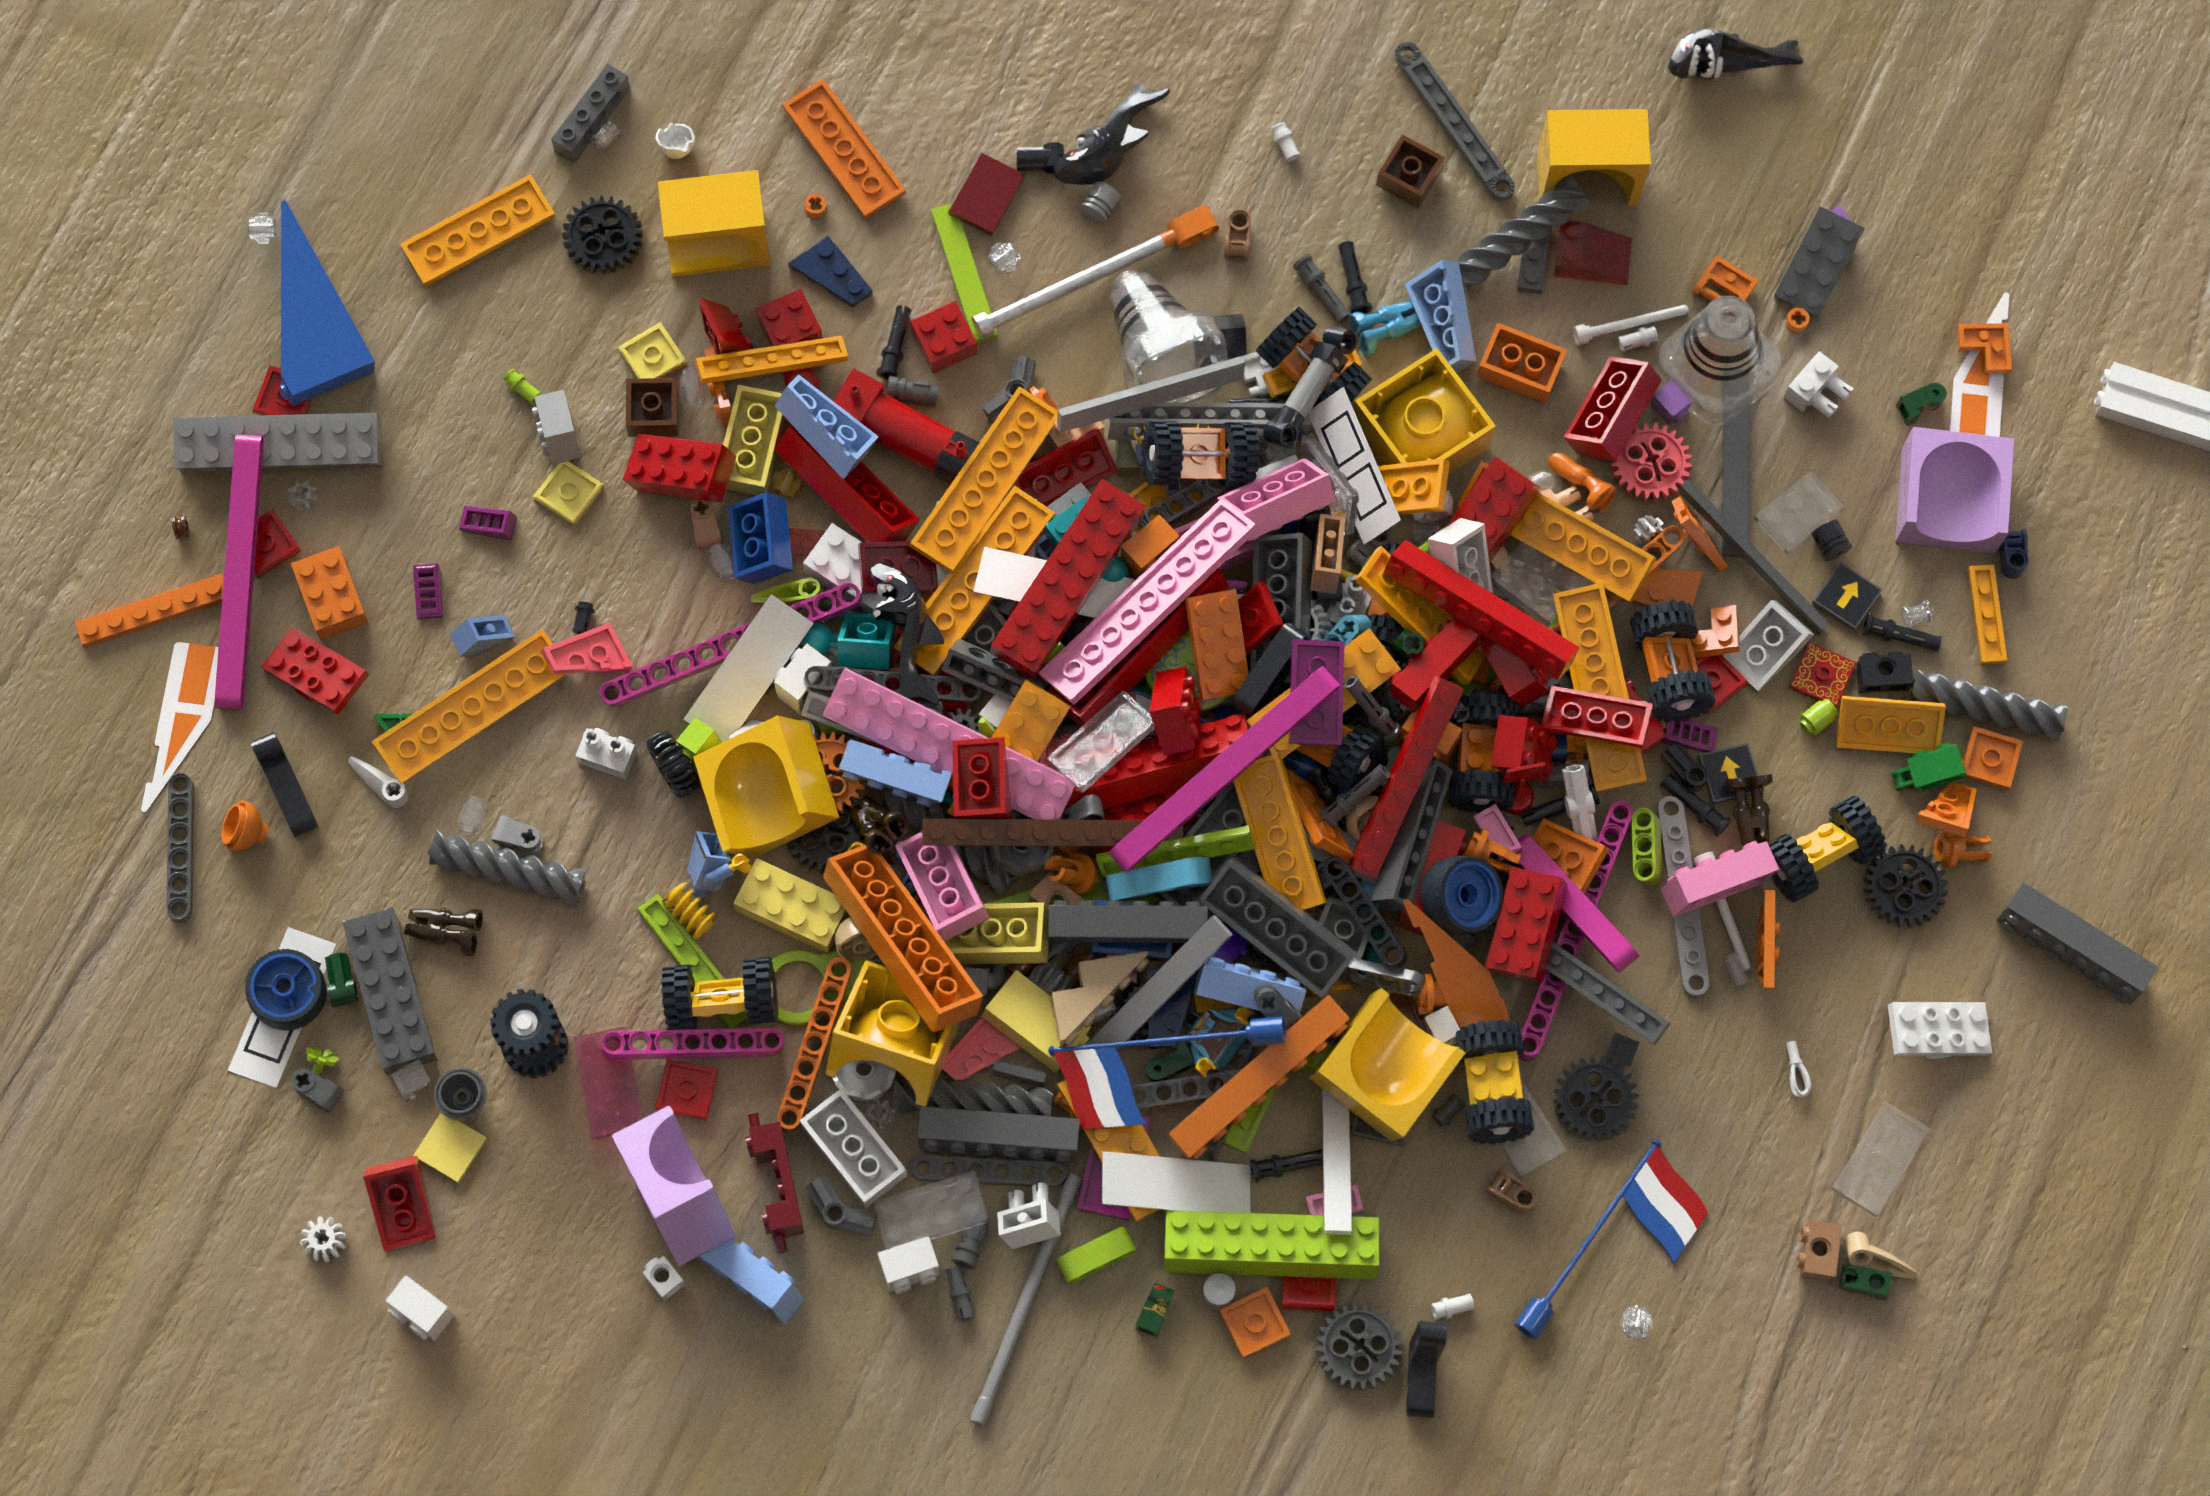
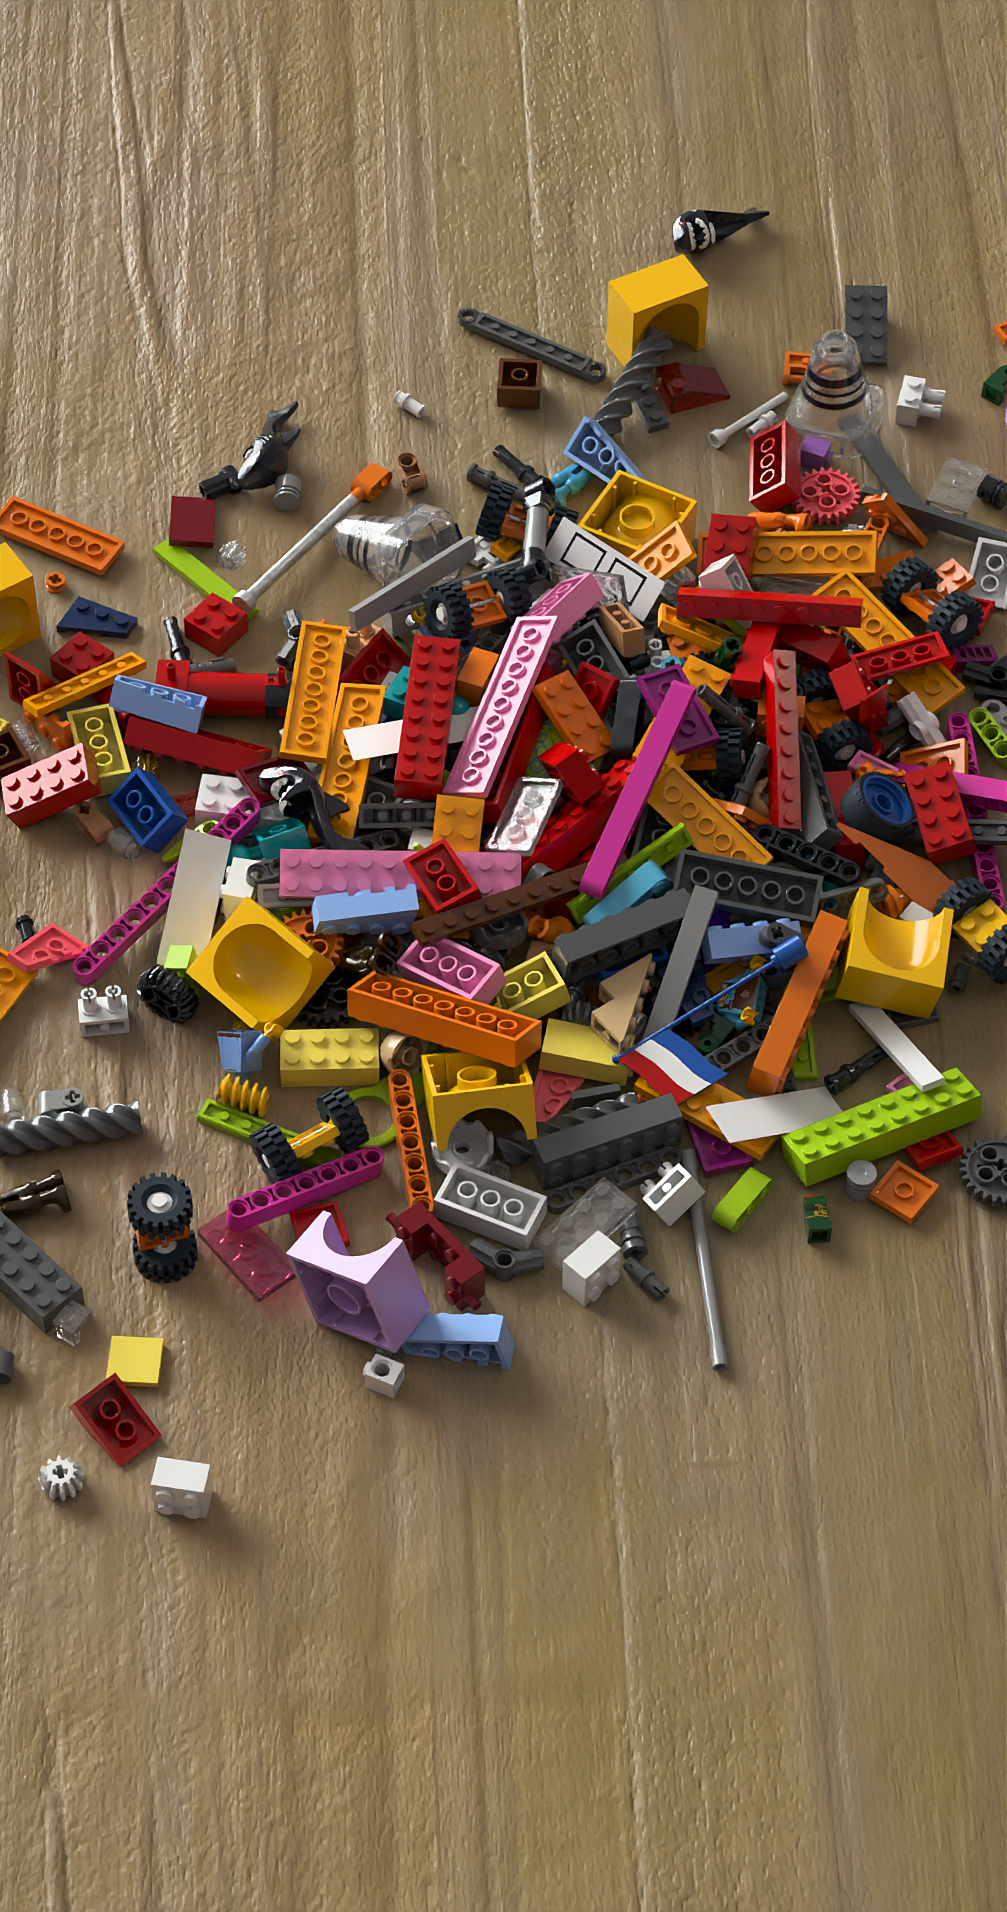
camera: 25 degrees left, 20 degrees down
(459, 1082) = (120, 1303): dark grey piece -> none
(1521, 363) = (686, 467): orange brick -> none
(1791, 324) = (873, 370): orange bush -> none

